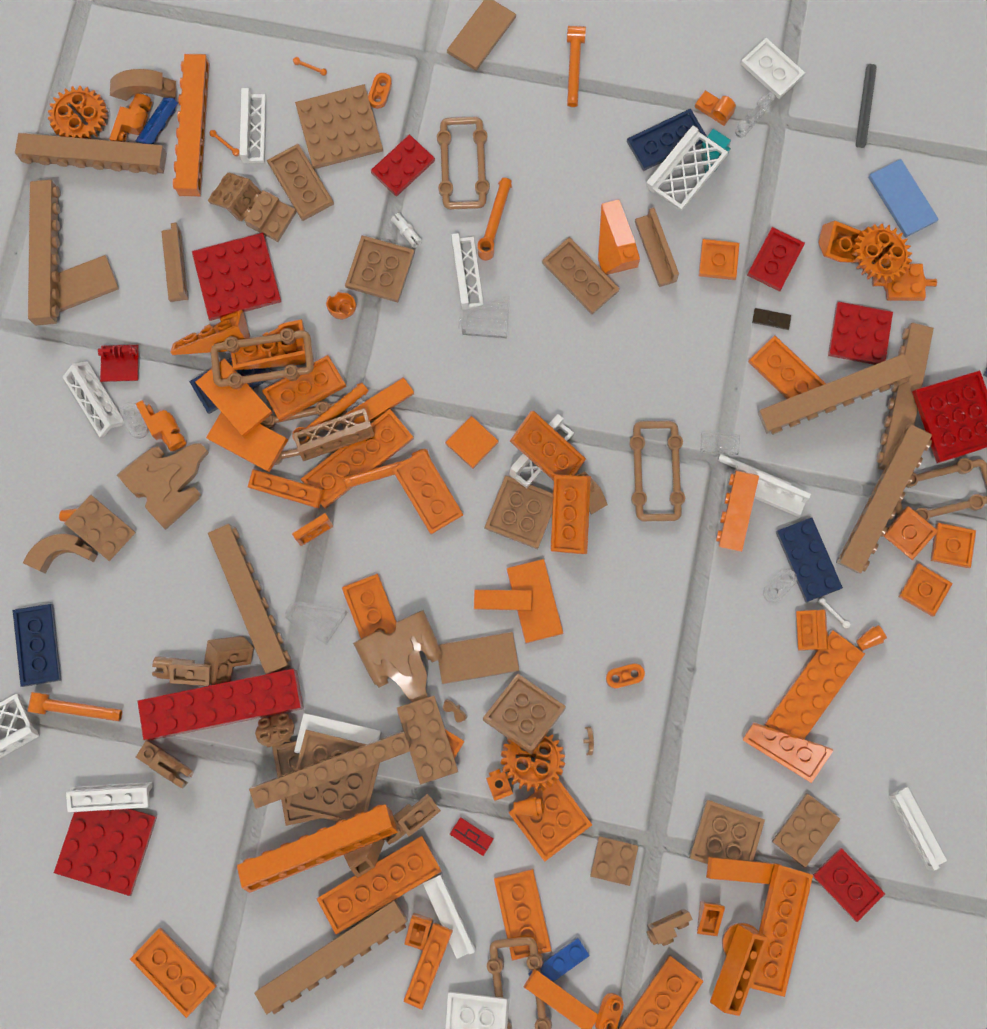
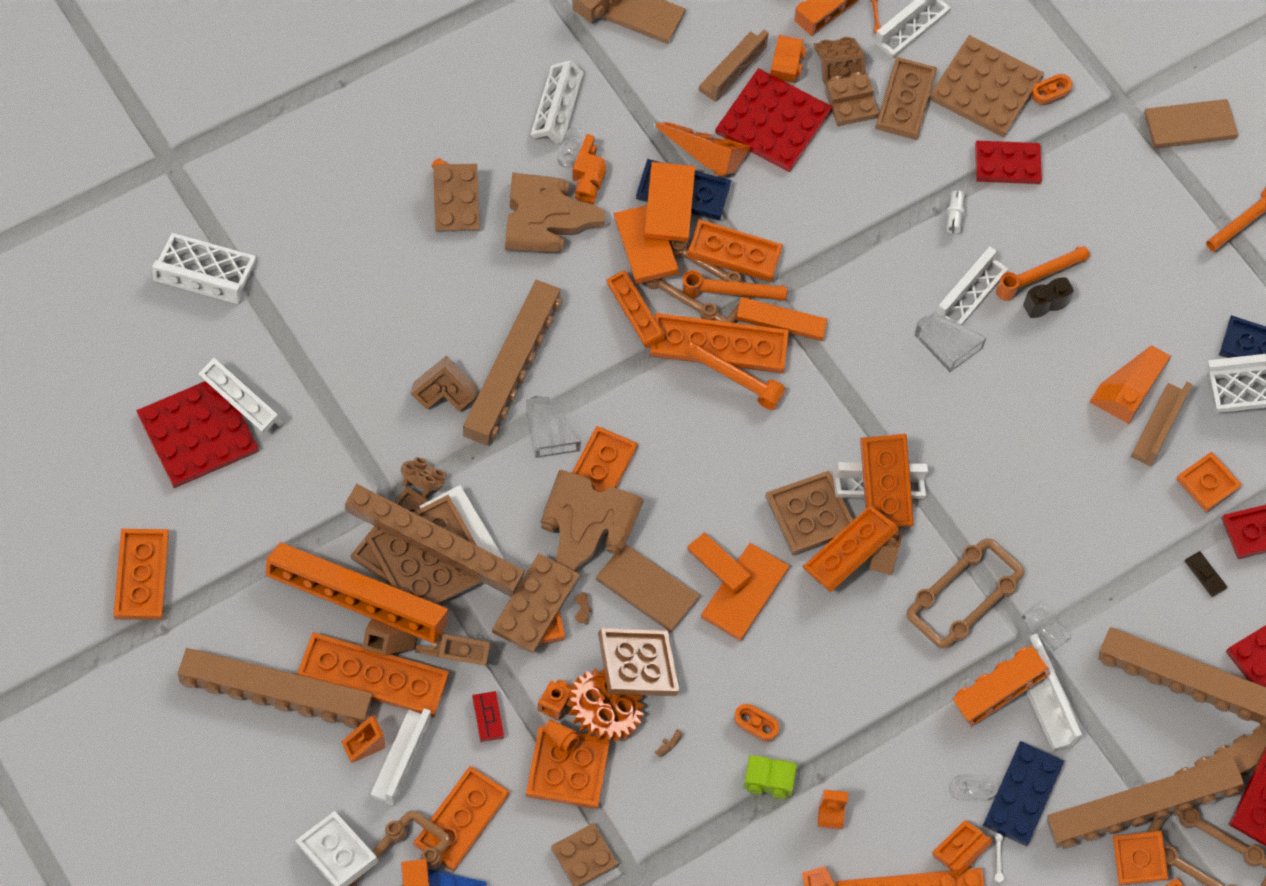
camera: 40 degrees right, 15 degrees down
(36, 645) = (310, 237): dark blue tile -> none
(41, 703) = (267, 280): orange piece -> none
(49, 548) = (406, 178): medium nougat arch -> none
(119, 363) = (607, 95): red hinge -> none
(164, 763) = (309, 415): medium nougat plate -> none
(182, 671) = (401, 361): medium nougat plate -> none
(202, 227) = (787, 58): none -> orange brick
(220, 704) = (402, 416): red brick -> none
(272, 354) = (748, 201): orange wedge -> none
(290, 372) = (736, 222): medium nougat bar -> none
(296, 61) = (1005, 7): orange hinge -> none
(312, 529) = (622, 356): orange tile -> none
(334, 439) = (716, 306): medium nougat fence -> none
(341, 305) = (835, 217): orange hair -> none
(379, 268) = (899, 220): medium nougat plate -> none
(427, 491) = (748, 420): orange tile -> none
(428, 966) = (341, 775): orange tile -> none
(472, 442) = (829, 421): orange tile -> none
(481, 186) = (1059, 236): medium nougat bar -> none
(516, 232) = (1048, 297): none -> dark brown brick
(580, 275) = (1068, 382): medium nougat plate -> none
(666, 701) = (770, 776): none -> lime brick
(722, 685) = (832, 809): none -> orange plate
(784, 369) = (1172, 618): orange tile -> none

